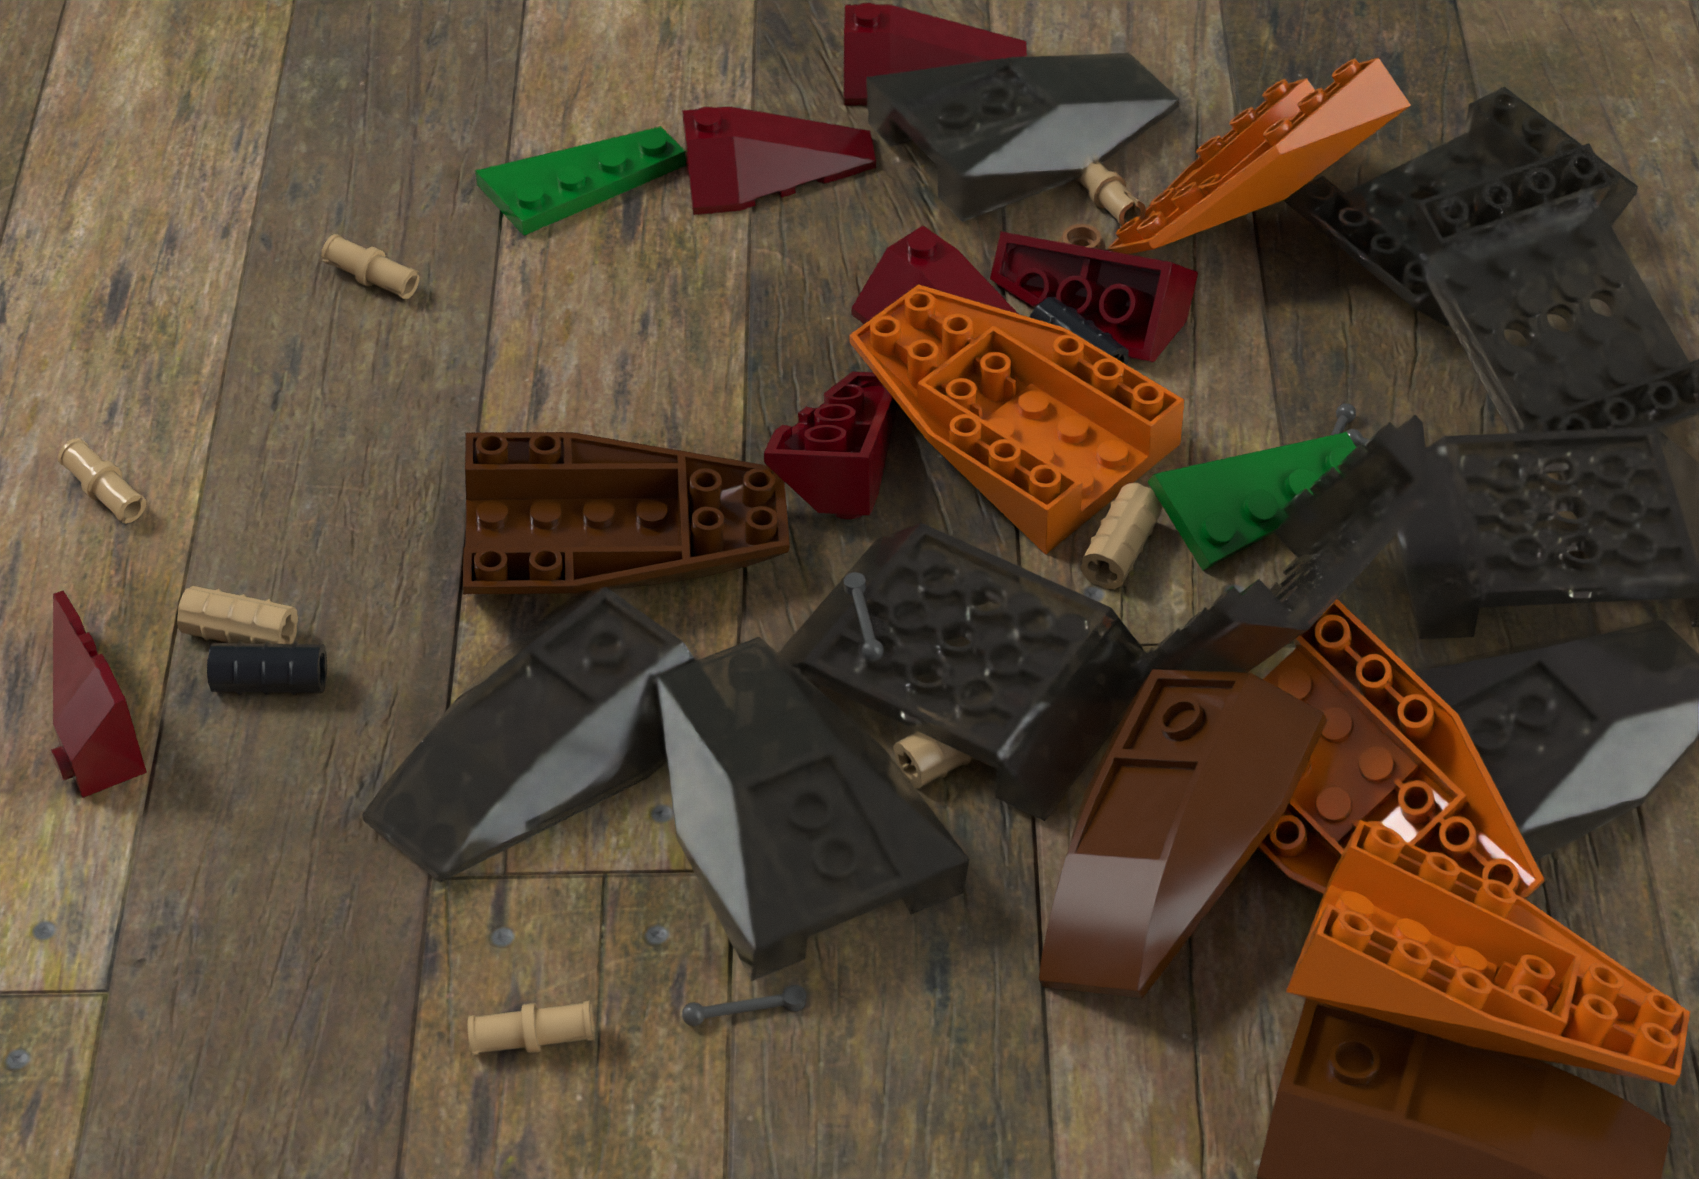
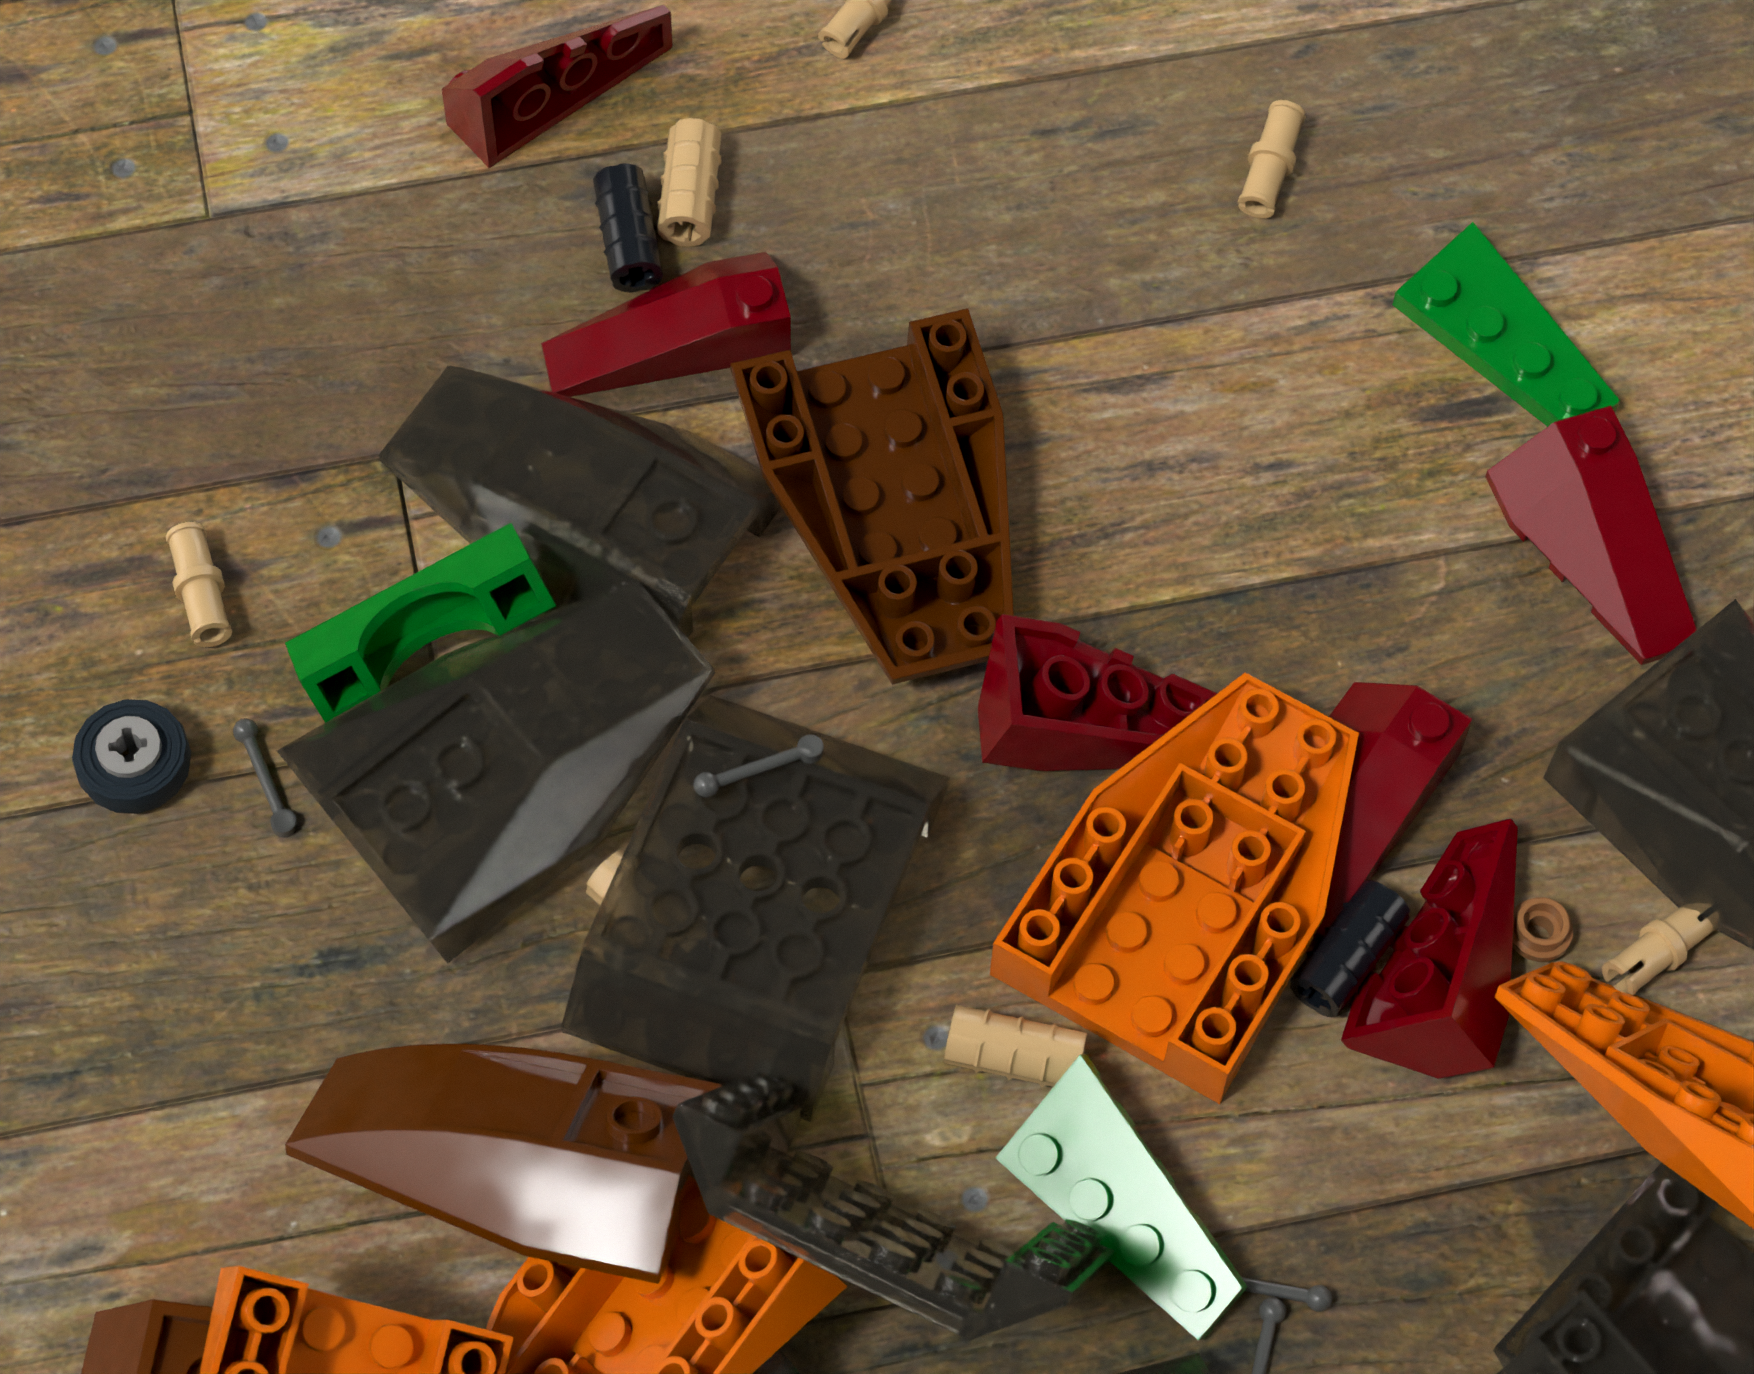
camera: 75 degrees right, 15 degrees up
(378, 646) = (676, 330): none -> dark red wedge
(628, 778) = (479, 587): none -> green arch
(718, 1113) = (152, 769): none -> black wheel

